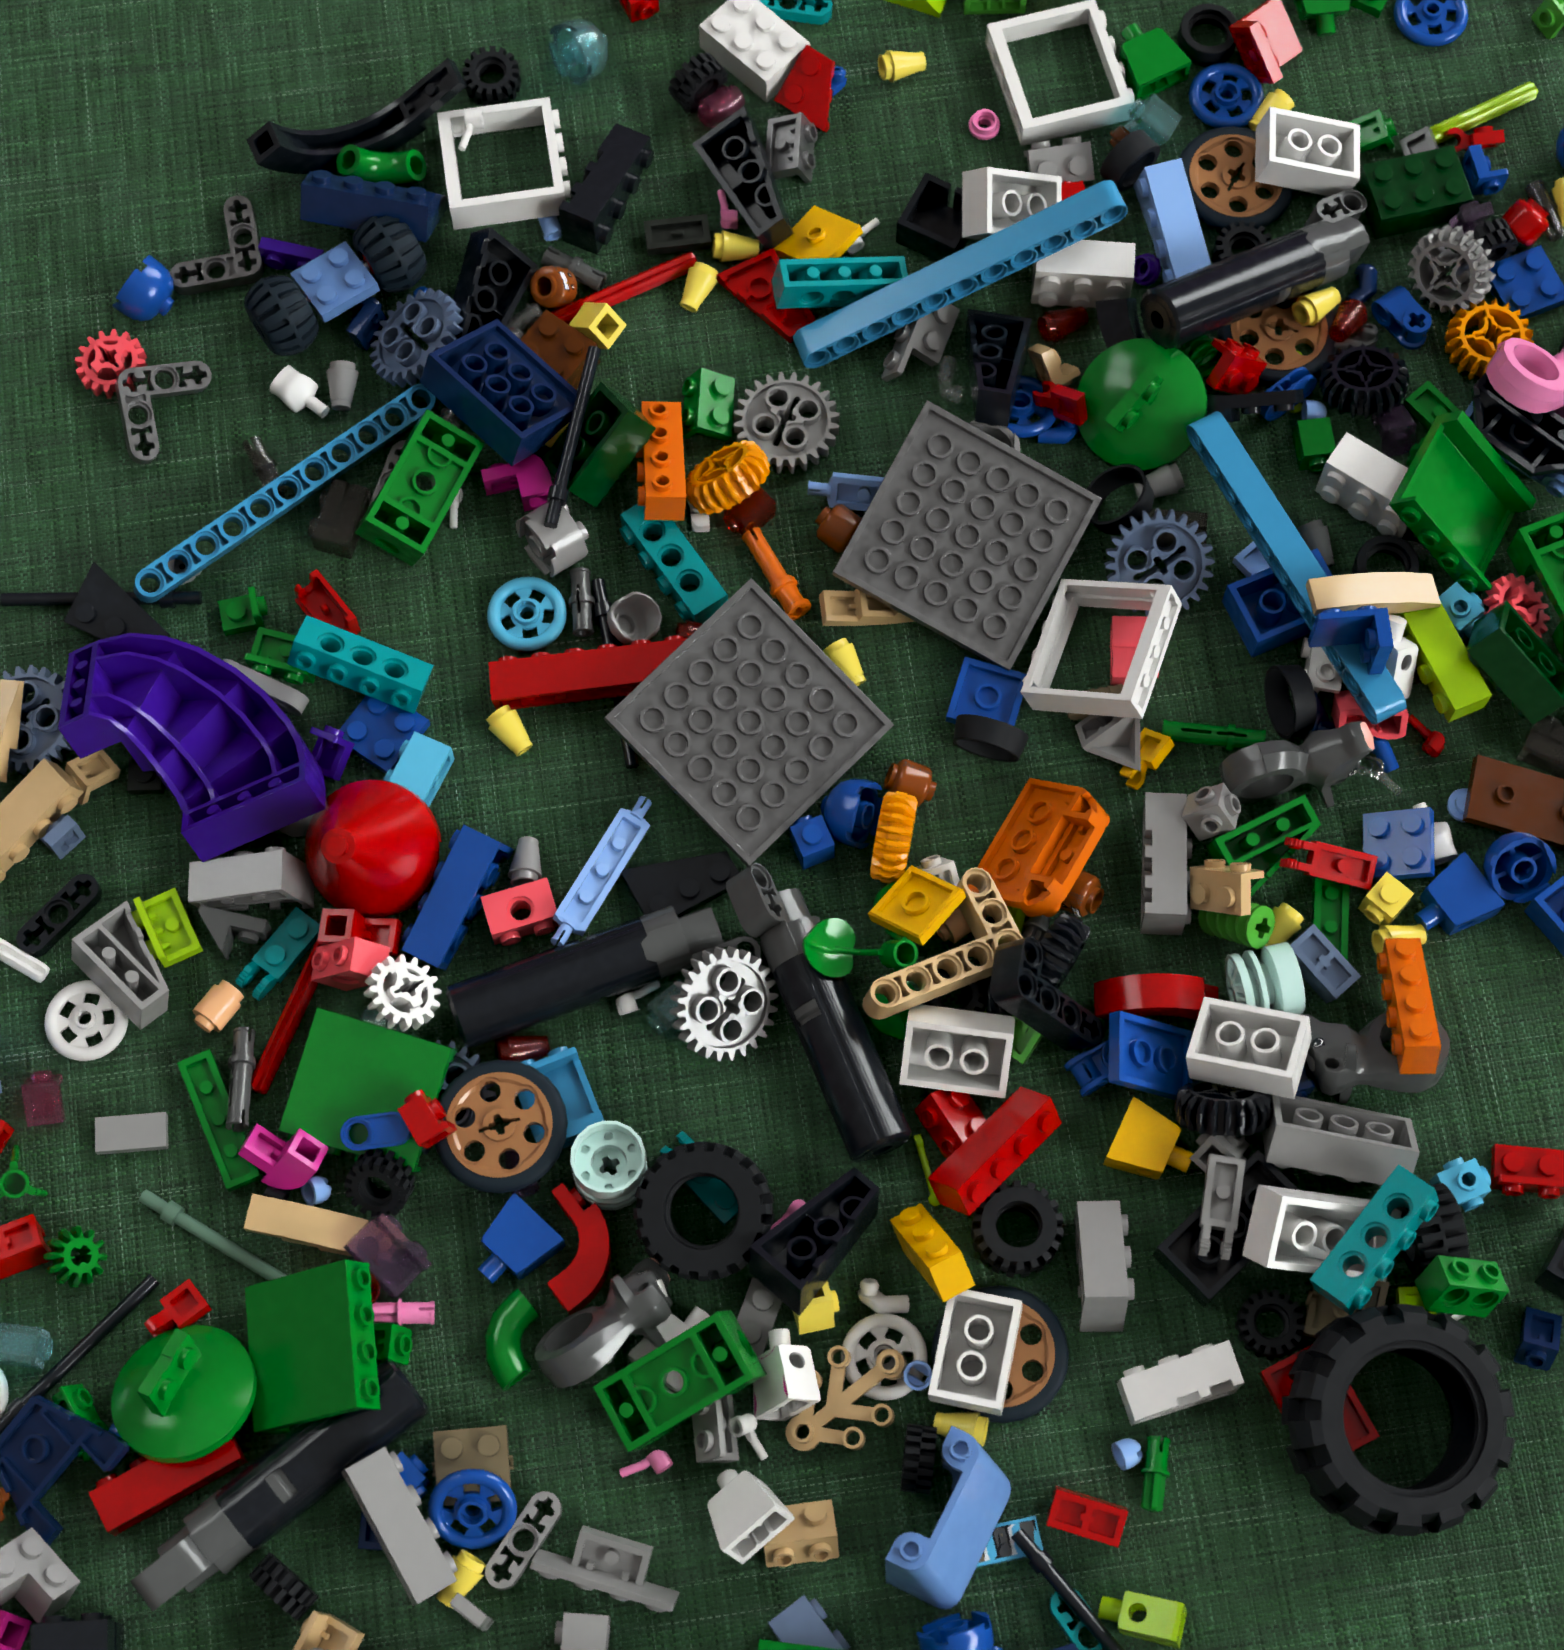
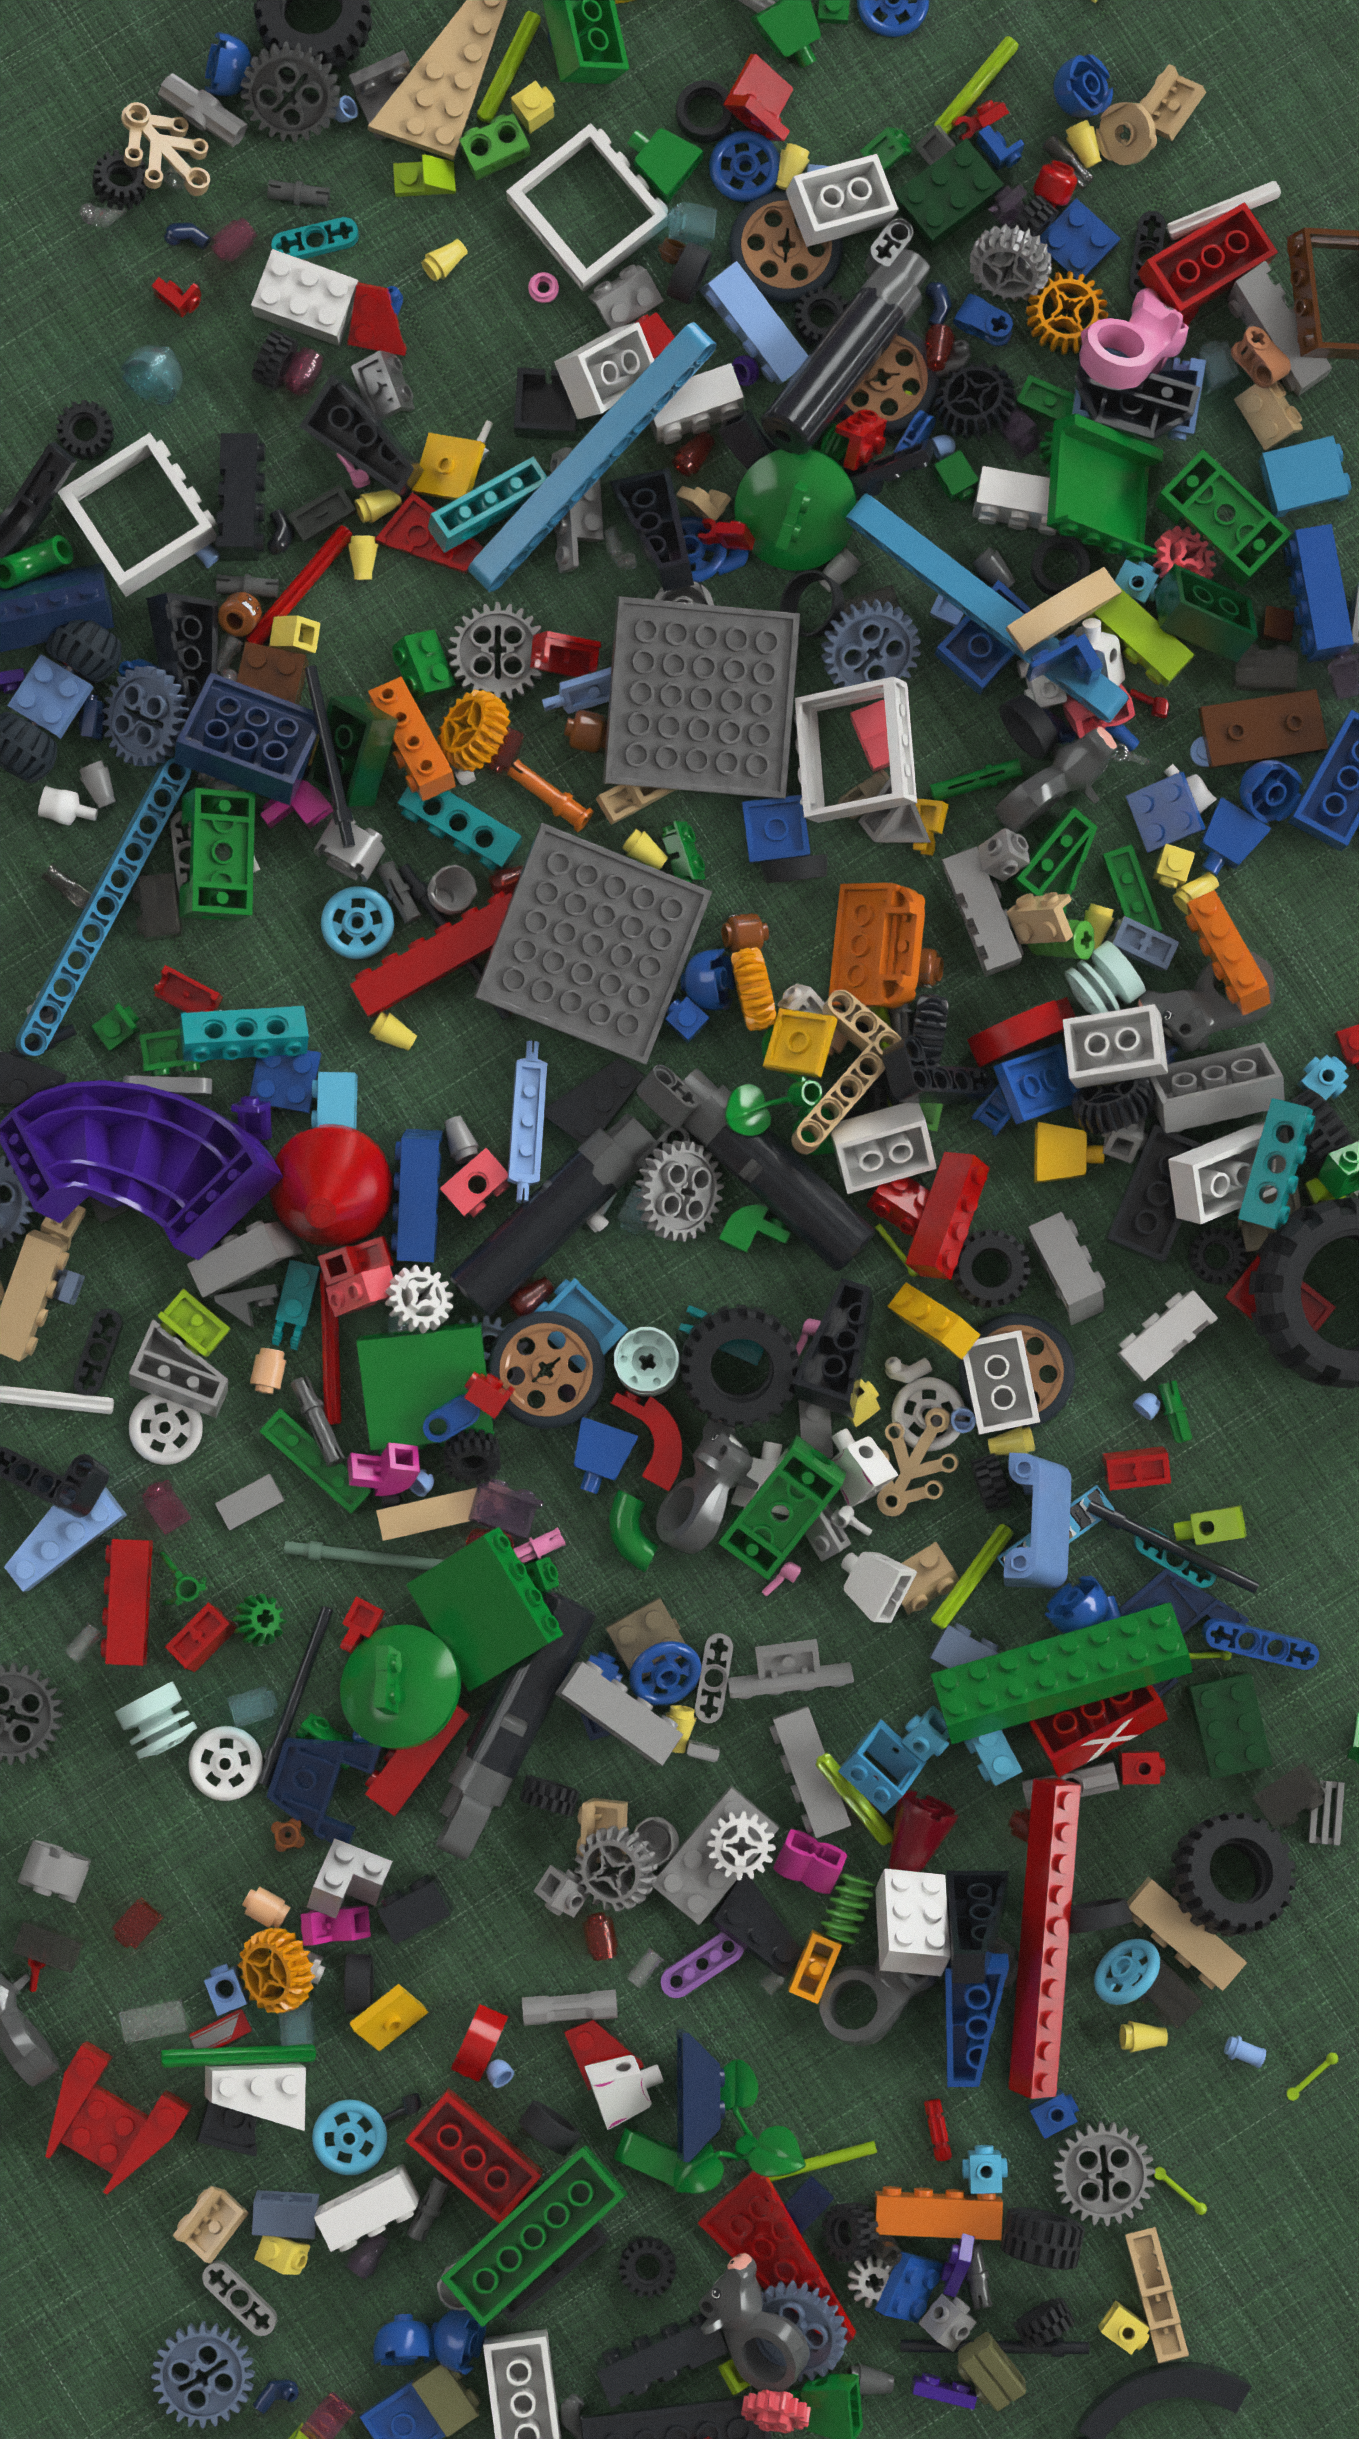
camera: 25 degrees left, 15 degrees up
(473, 119) = (95, 487): white hand -> none
(631, 238) = (283, 535): none -> black arm
(783, 1071) = (746, 1223): none -> green brick
(850, 445) = (564, 654): none -> red hinge
(852, 1555) = (972, 1576): none -> lime axle
(885, 668) = (680, 839): none -> green hinge
(1221, 1202) = (1143, 1182): light grey hinge -> none
(1314, 306) = (905, 347): light yellow cone -> none
(1333, 863) = (1119, 856): red hinge -> none

